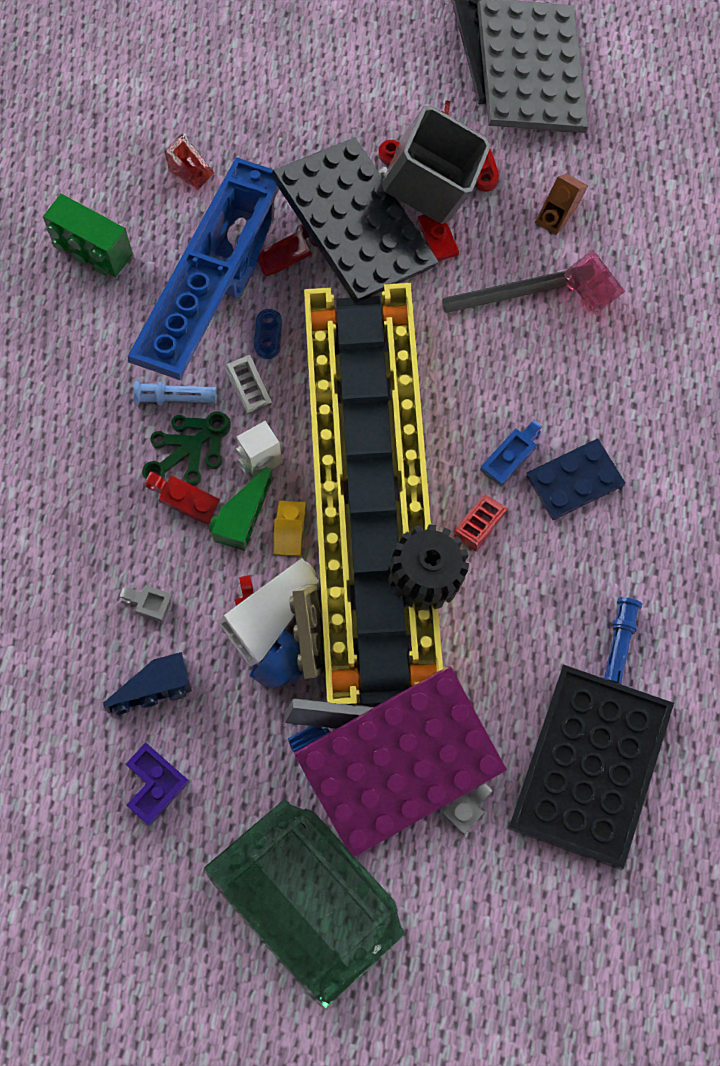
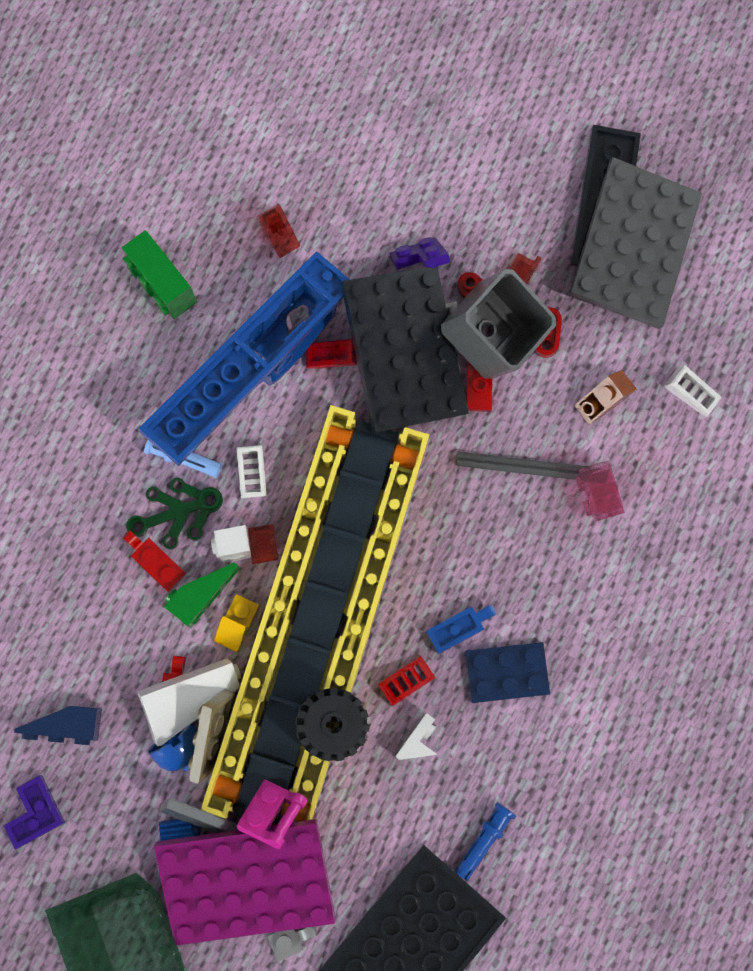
camera: 20 degrees right, 10 degrees up
(150, 603) = (90, 647): light grey plate -> none
(268, 332) = (288, 426): clear blue plate -> none
(289, 436) = (263, 544): none -> clear red slope
(338, 133) = (427, 251): none -> dark purple plate
(393, 675) = (265, 808): none -> dark pink plate
(516, 575) = (413, 747): none -> white slope
(637, 179) = (679, 390): none -> white slope

